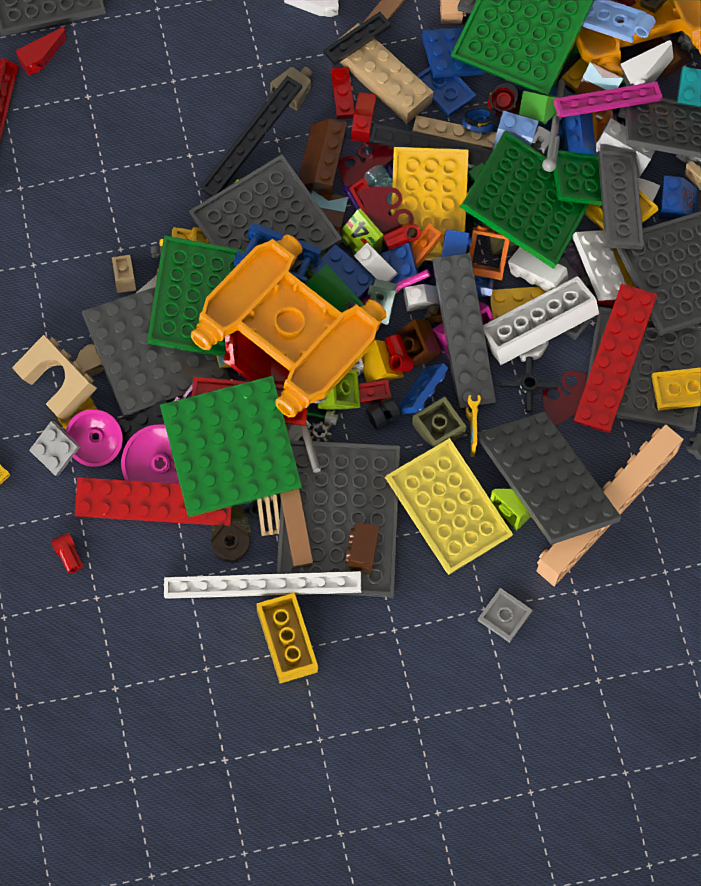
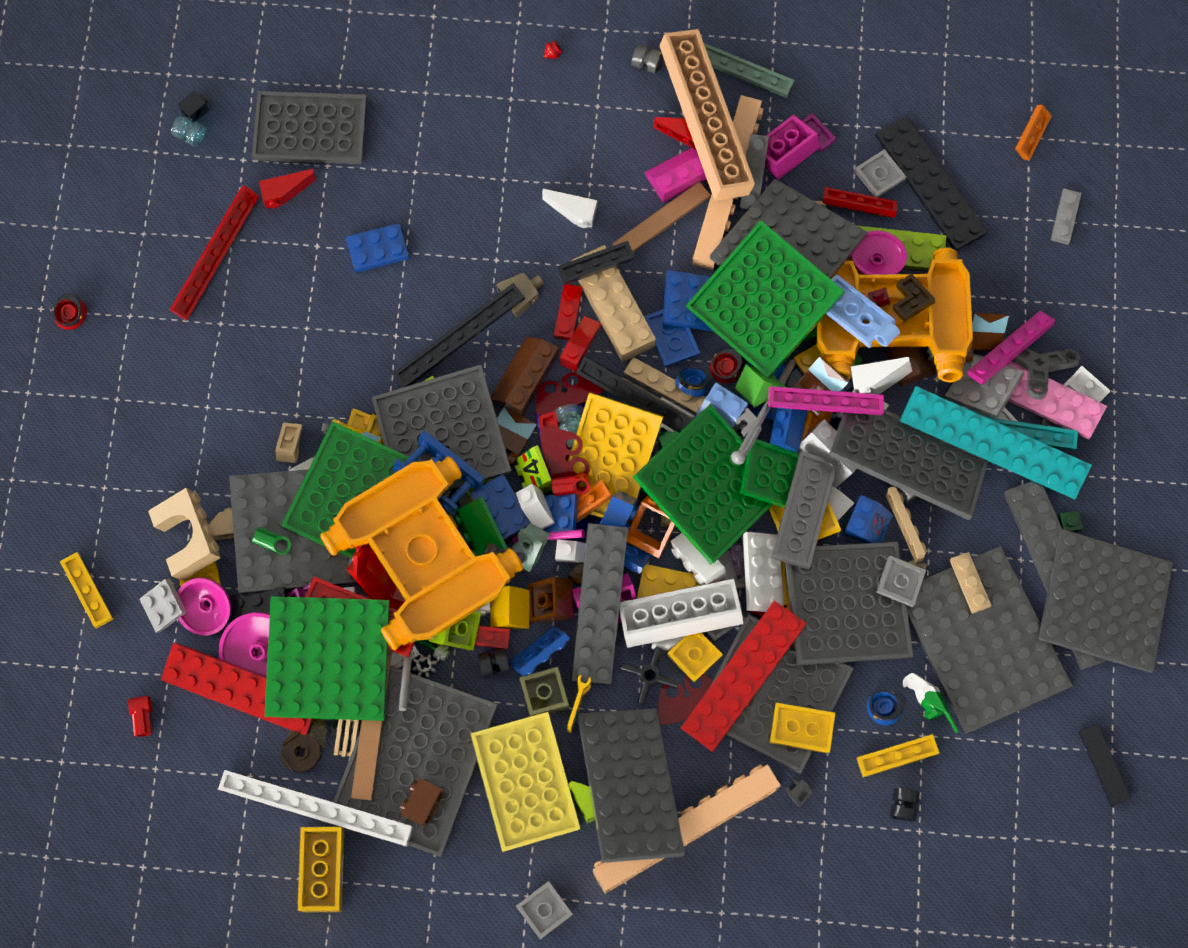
camera: 20 degrees right, 5 degrees up
(140, 358) = (270, 540): none -> green piece
(145, 83) = (377, 247): none -> blue plate
(398, 357) = (528, 612): red piece -> none
(563, 355) = (694, 655): none -> yellow plate

